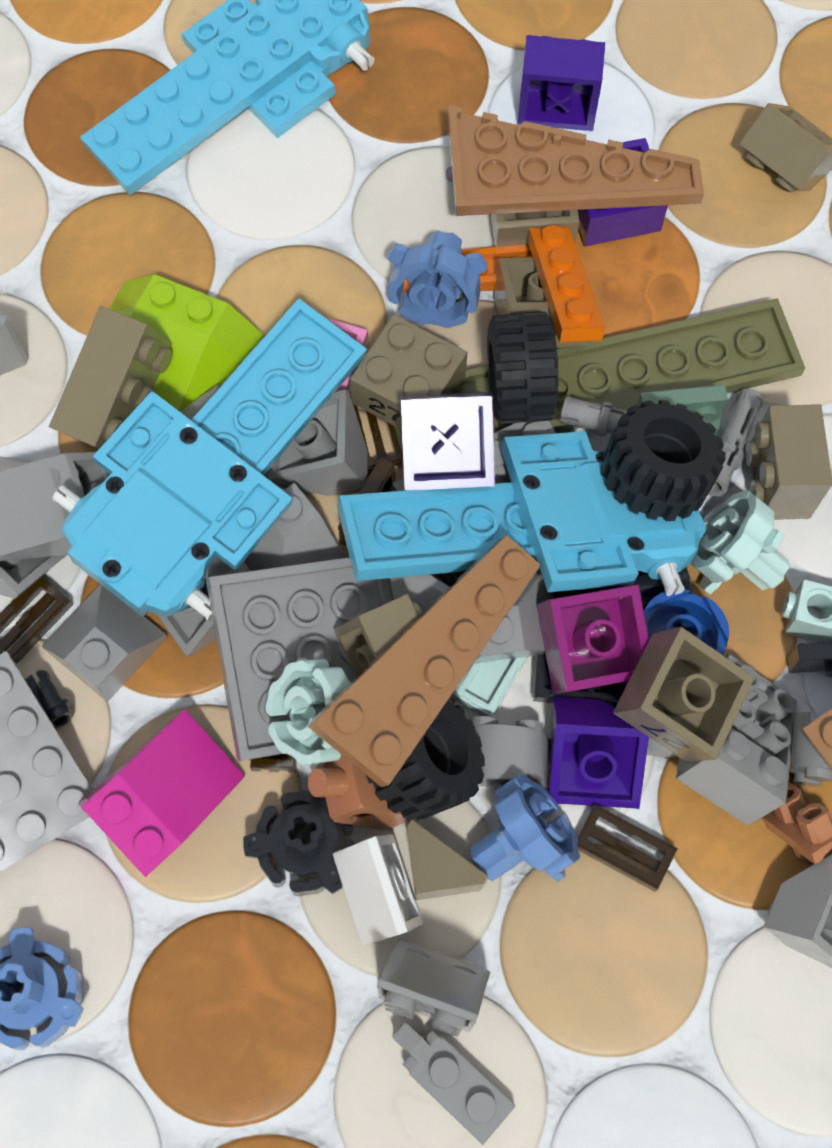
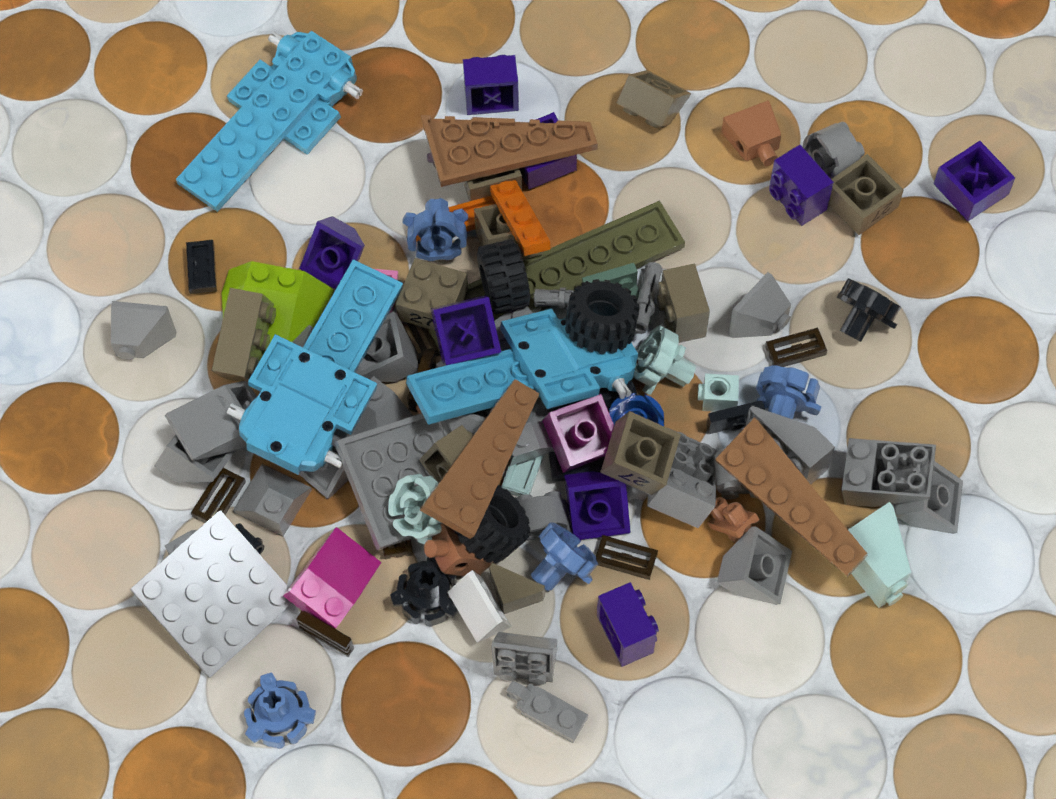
camera: 10 degrees left, 5 degrees down
(85, 269) = (201, 266): none -> black plate
(130, 876) = (325, 633): none -> dark brown tile
(275, 278) = (331, 251): none -> dark purple slope
(608, 969) = (627, 623): none -> dark purple brick

